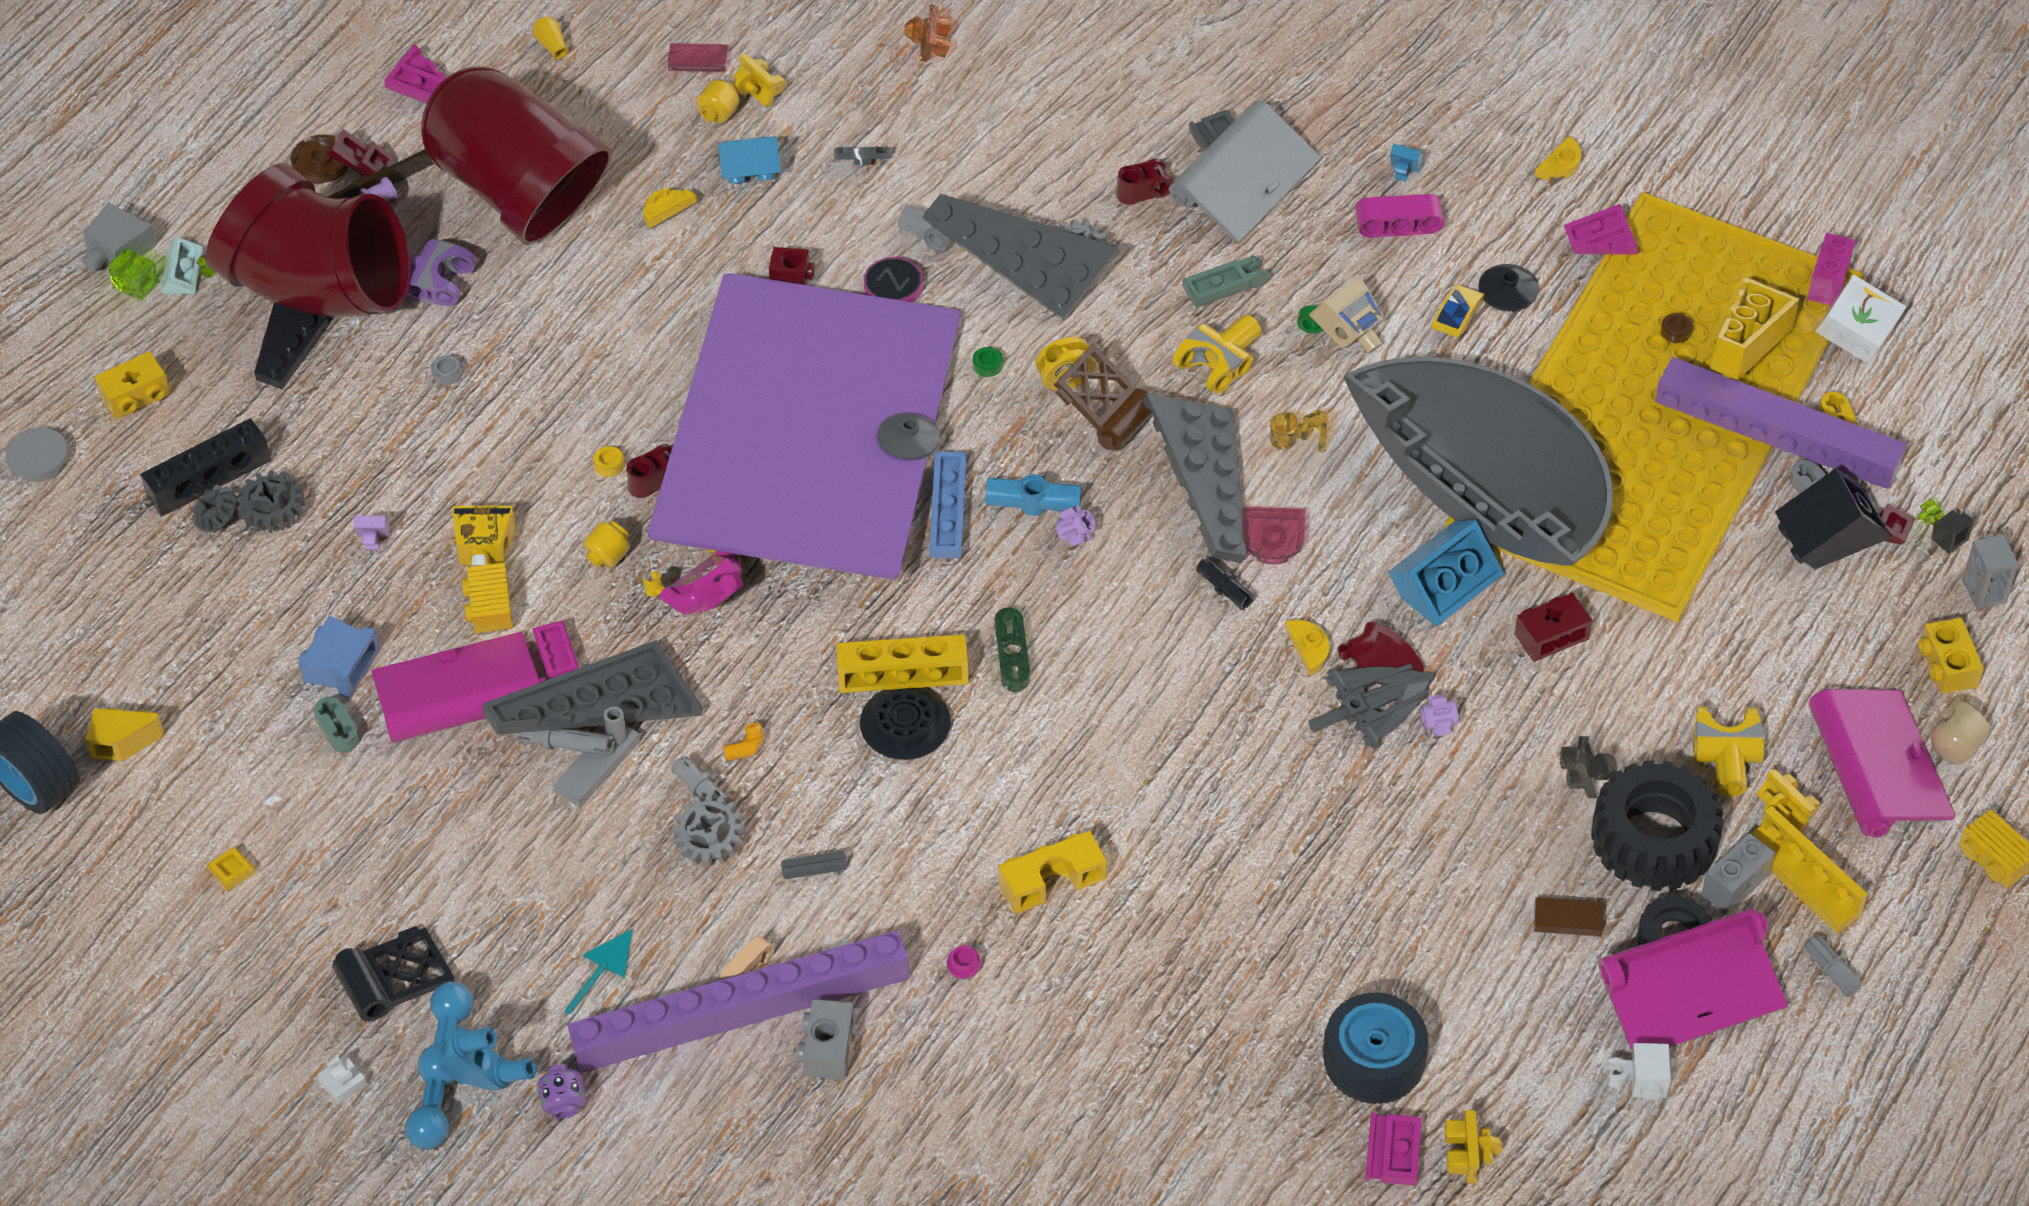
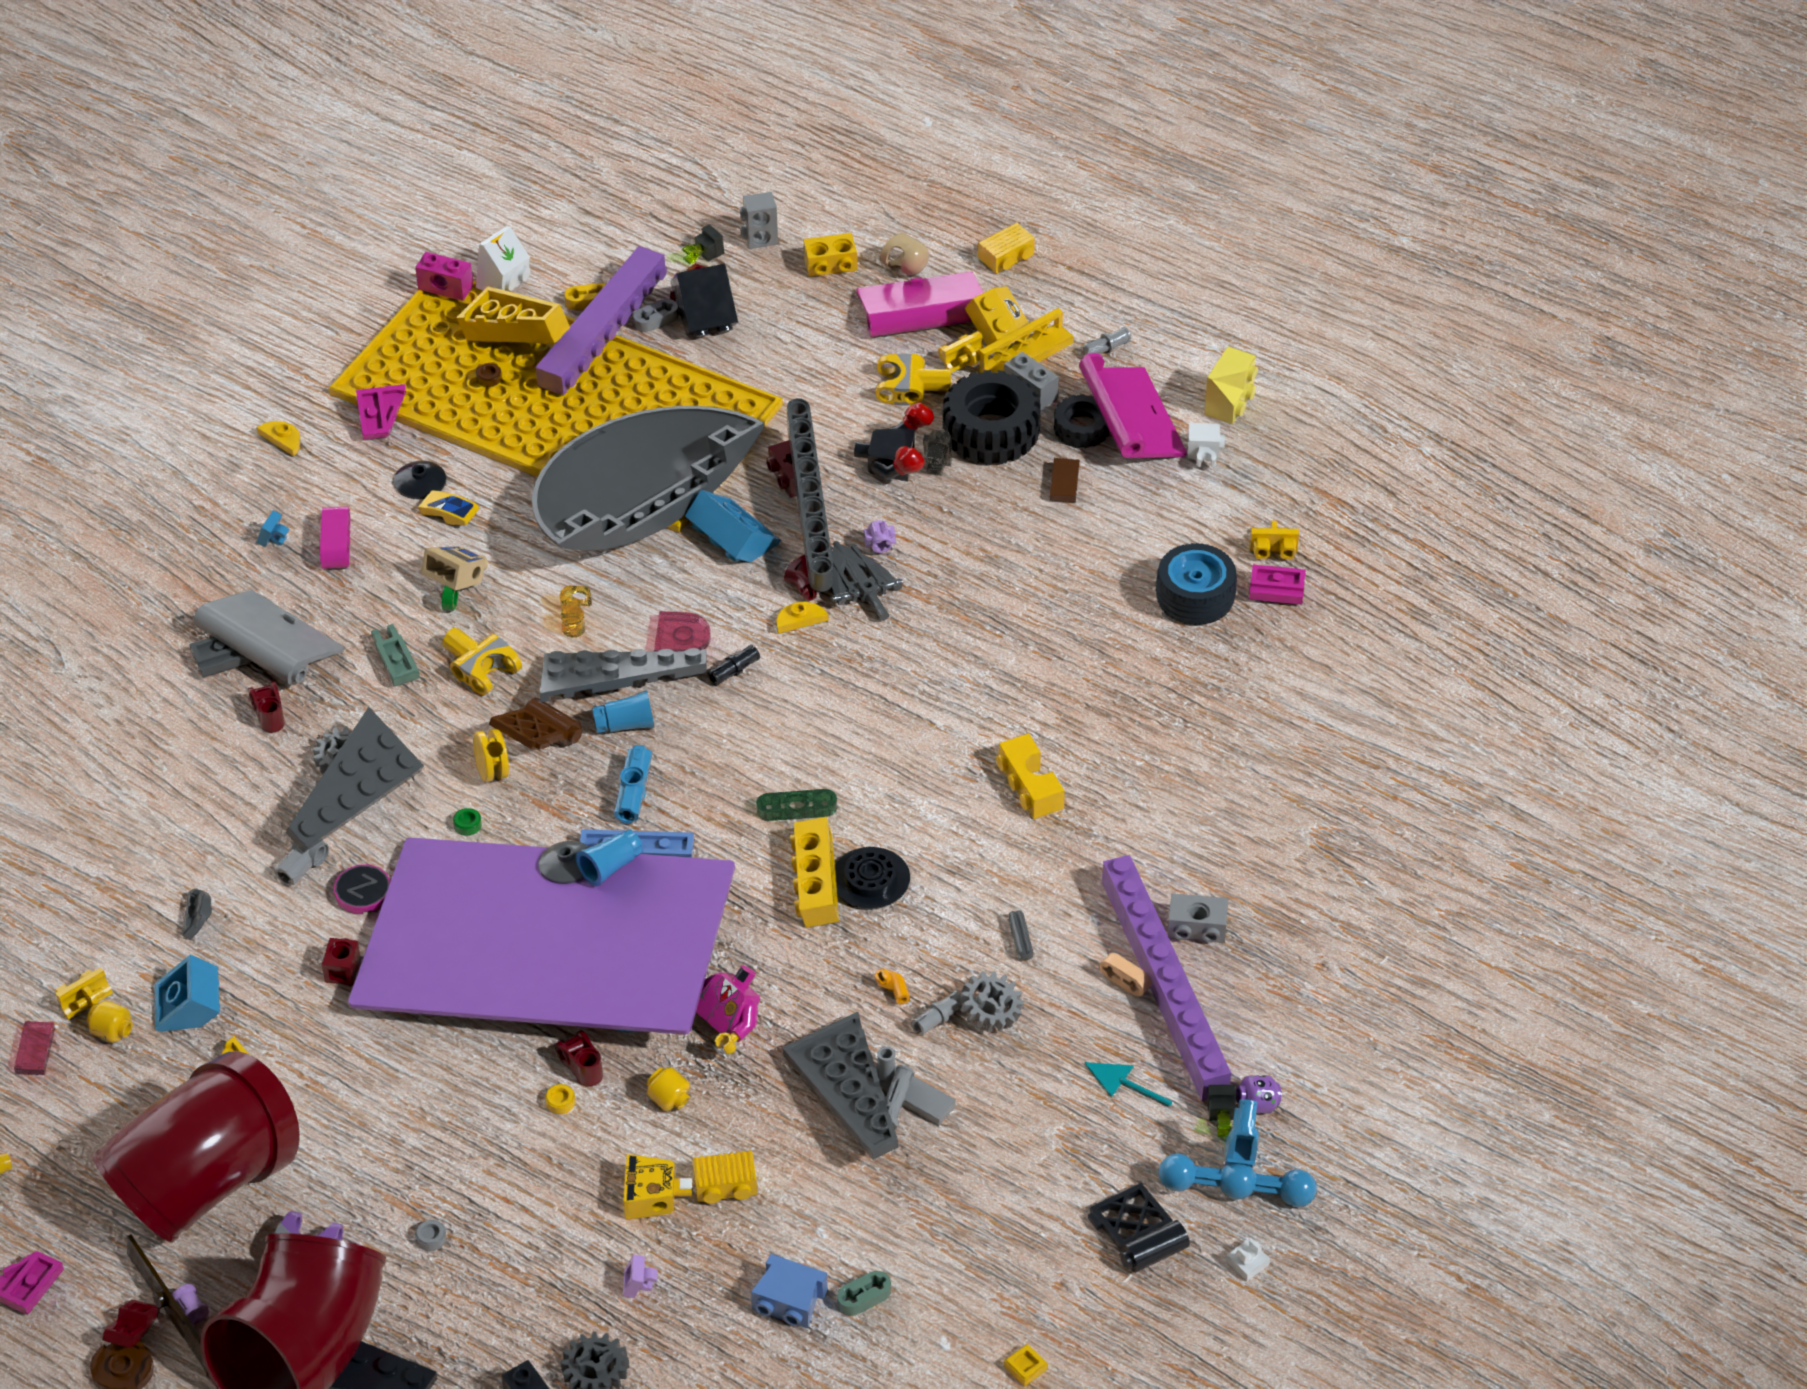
camera: 90 degrees left, 5 degrees down
(451, 685) = (830, 1197): dark pink door -> none
(550, 1053) = (1221, 1106): none -> pearl dark grey piece
(555, 649) = (788, 1124): dark pink plate -> none
(897, 459) = (608, 856): none -> dark azure plant
(926, 33) = (45, 858): clear orange hips -> none
(963, 962) = (1116, 835): dark pink plate -> none
(1075, 525) = (670, 755): lavender gear -> none
(1138, 485) = (624, 714): none -> dark azure plant
(1496, 619) = (809, 495): none -> dark grey beam
(1594, 717) = (893, 449): none -> black torso
(1748, 1095) = (1230, 385): none -> light yellow slope
(1849, 832) = (996, 314): none -> yellow slope

